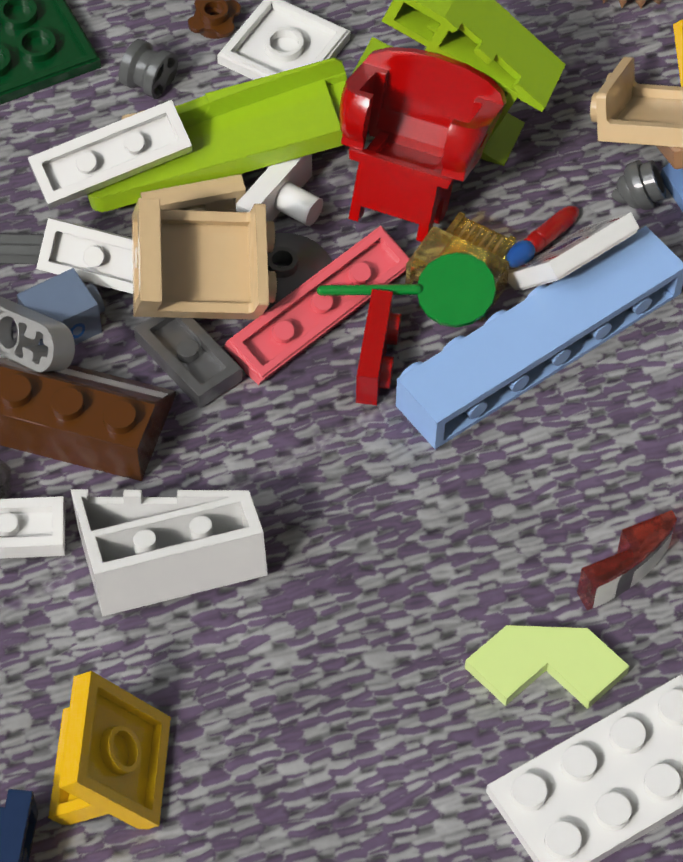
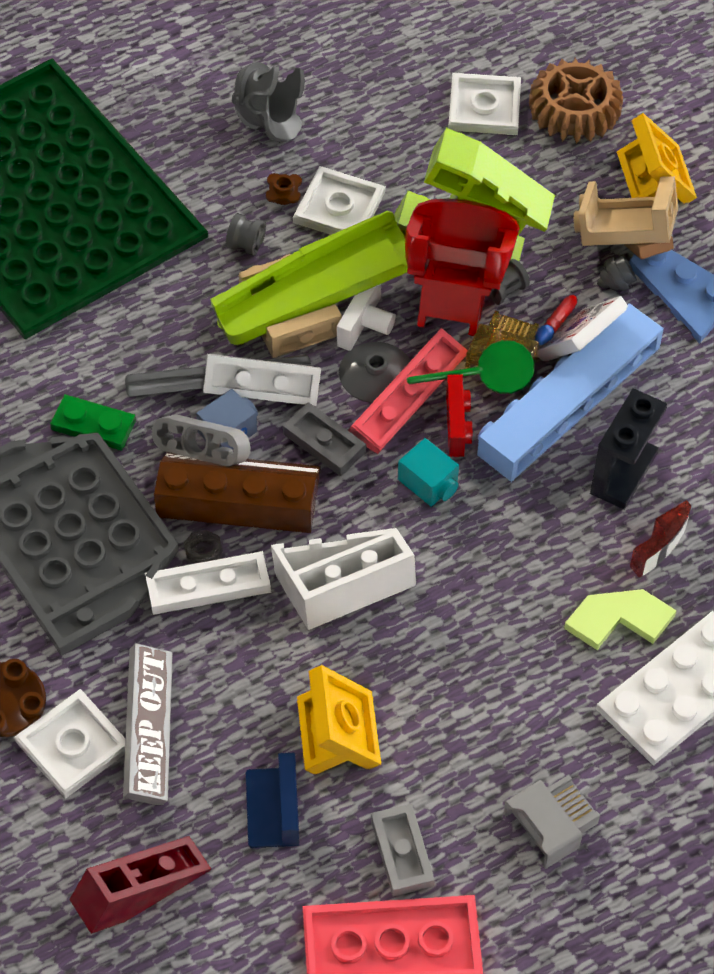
camera: 10 degrees left, 0 degrees up
(110, 154) = (241, 302): white plate -> none
(201, 262) = (324, 372): tan panel -> none
(319, 420) = (429, 473): none -> teal brick
(488, 175) = (514, 278): none -> dark grey bush
(591, 428) = (625, 451): none -> black panel

